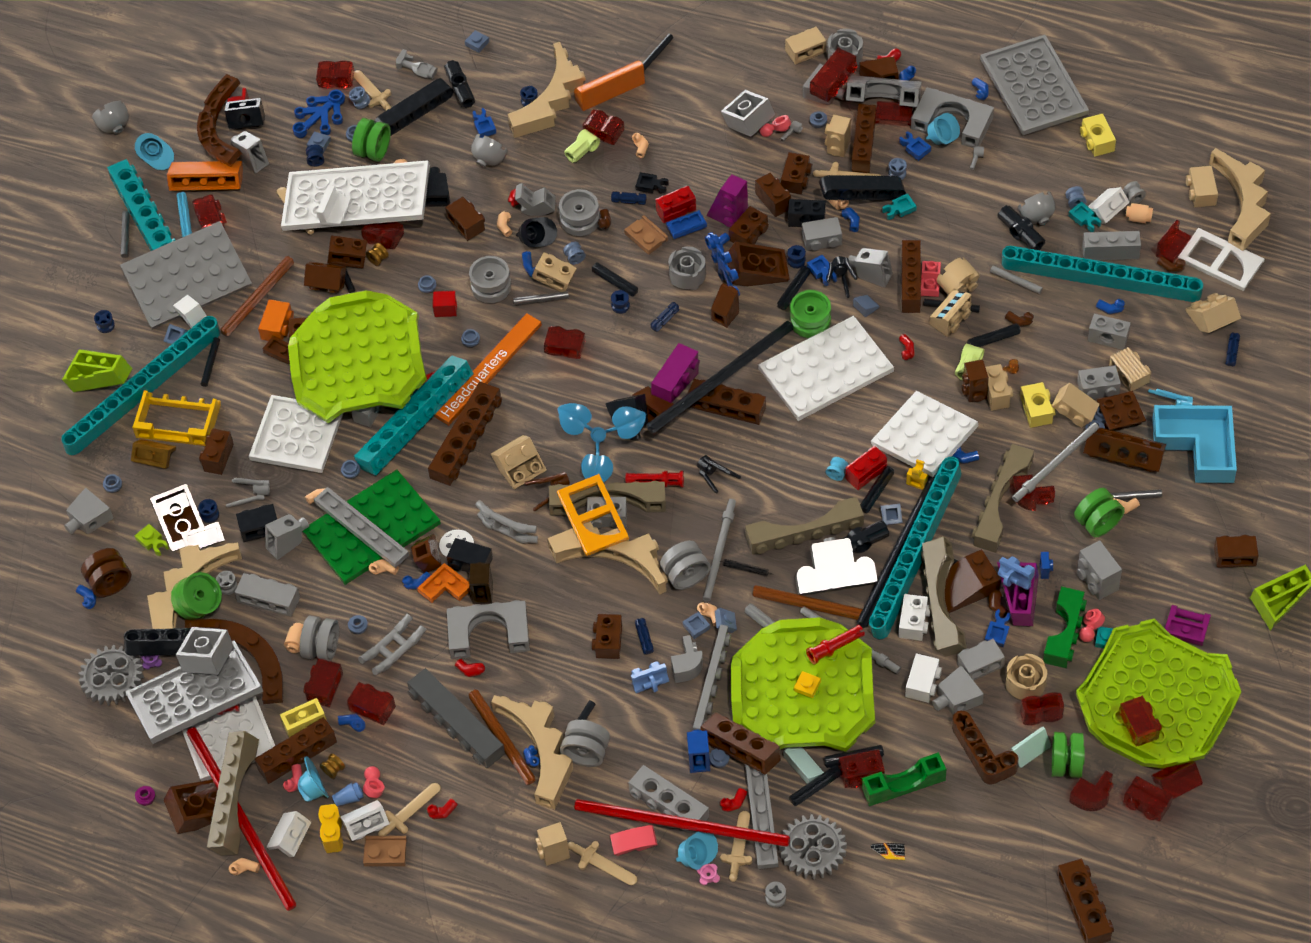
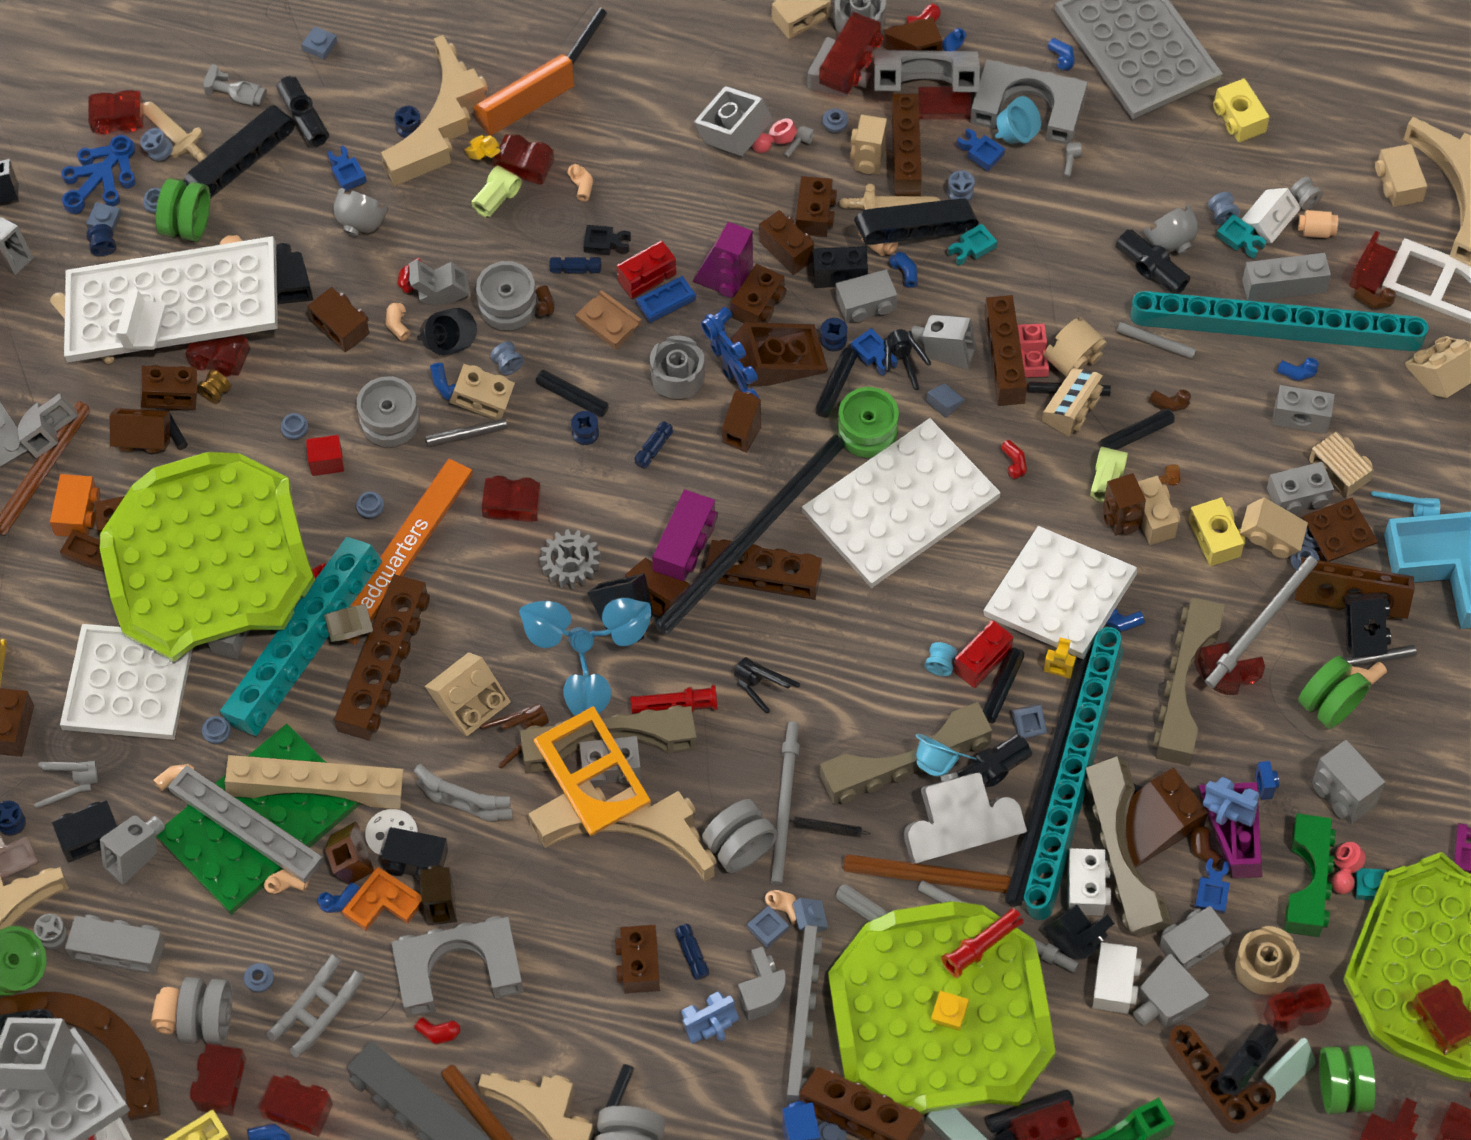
camera: 10 degrees left, 5 degrees up
(260, 267) = (40, 424): none -> light grey brick
(375, 498) = (267, 776): none -> tan arch
(445, 408) = (348, 622): none -> dark tan panel
(576, 116) = (481, 147): none -> yellow plate
(598, 383) = (570, 558): none -> light grey gear
(823, 527) = (936, 757): none -> medium azure piece
(900, 647) = (1075, 933): none -> black brick
(1002, 735) = (1247, 1059): none -> black piece
(1123, 481) = (1358, 611): none -> black brick

